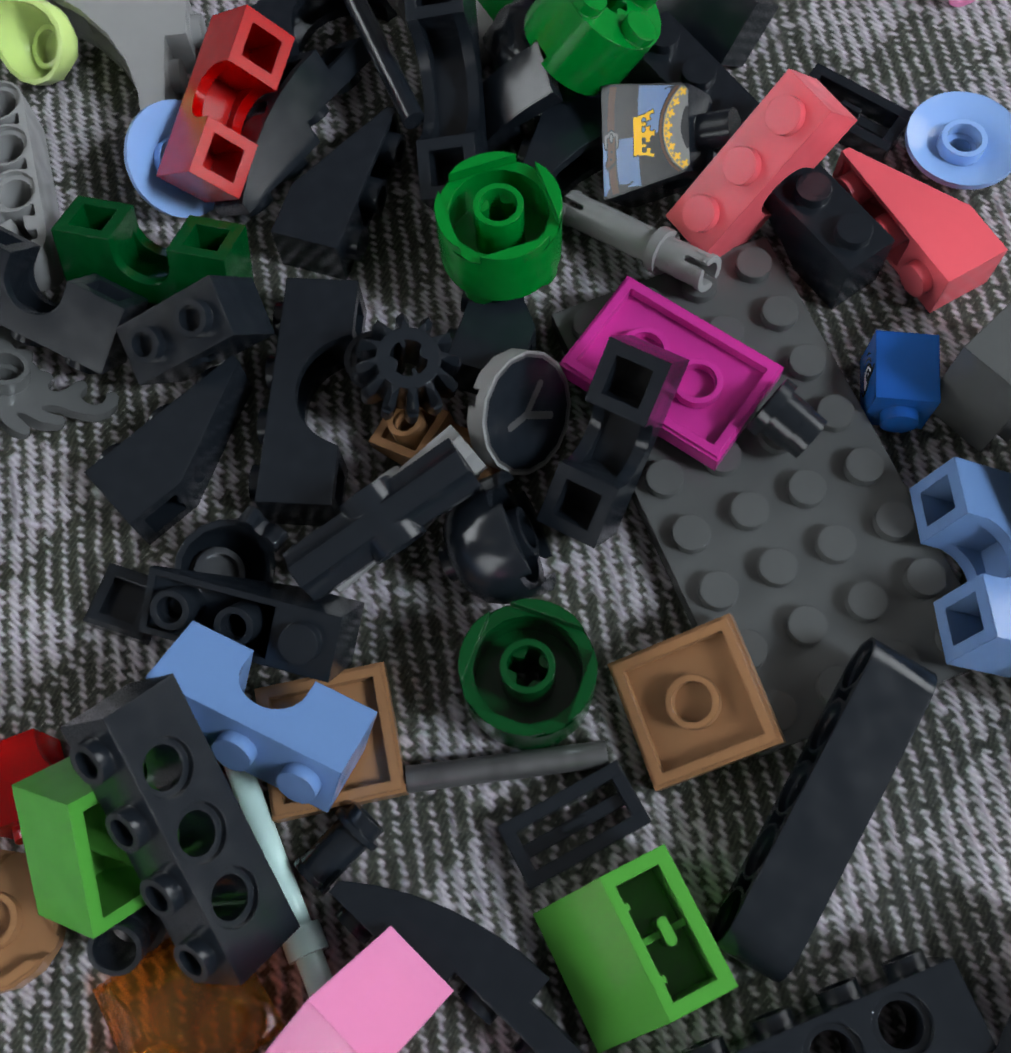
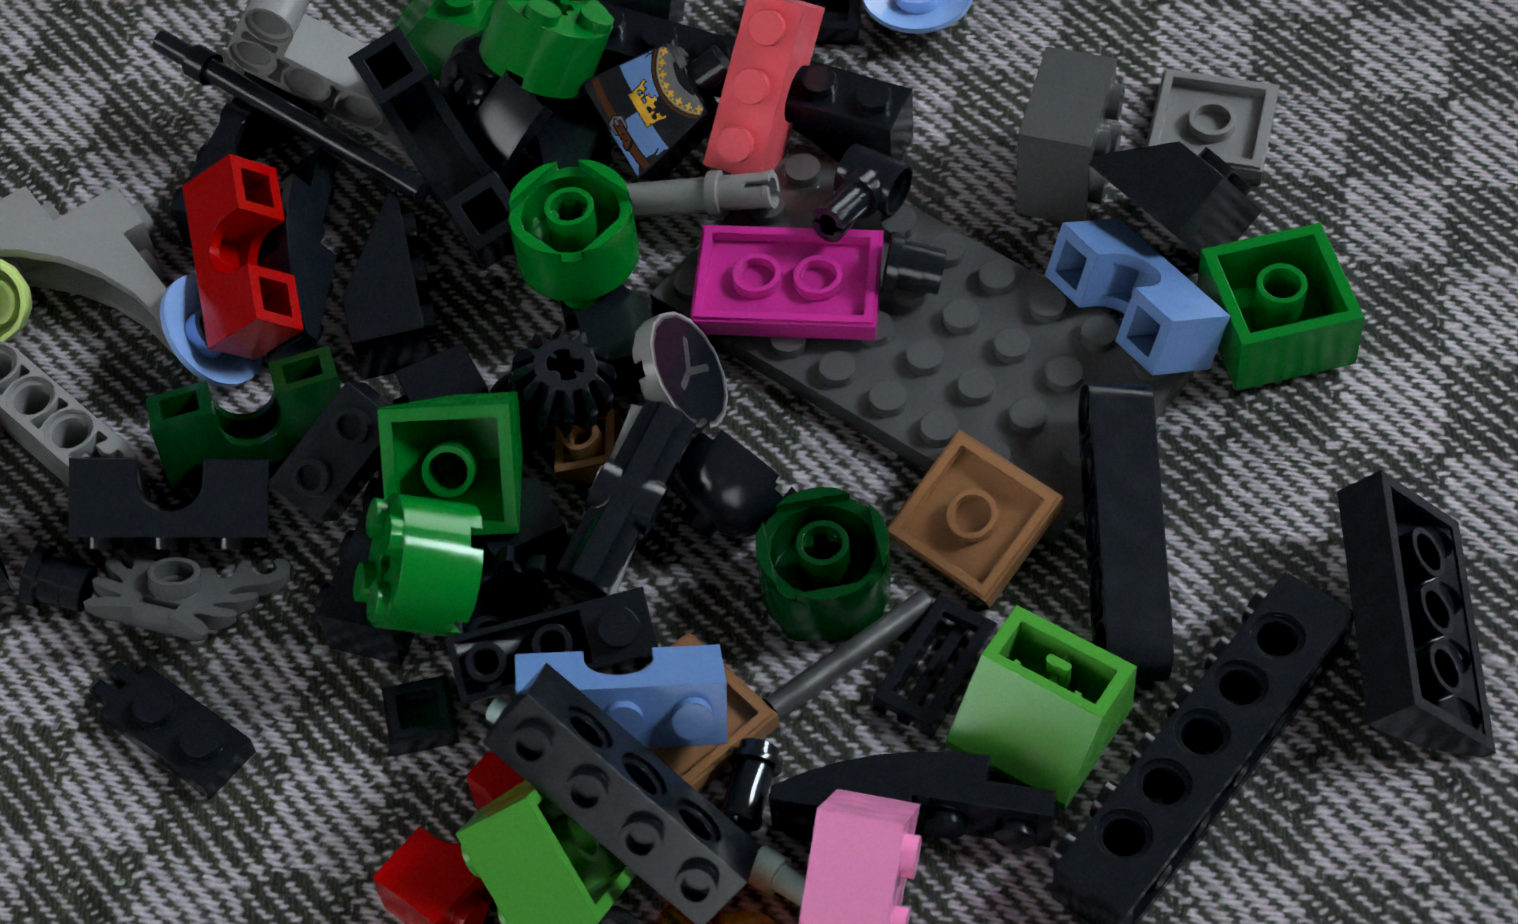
camera: 30 degrees left, 15 degrees down
(159, 488) = (420, 565): none -> green brick
(263, 398) = (457, 452): none -> green slope
(630, 405) = (781, 345): black arch -> none
(793, 313) = (862, 185): none -> black pin
(900, 380) = (984, 197): blue brick -> none
(939, 240) = (951, 78): coral slope -> none

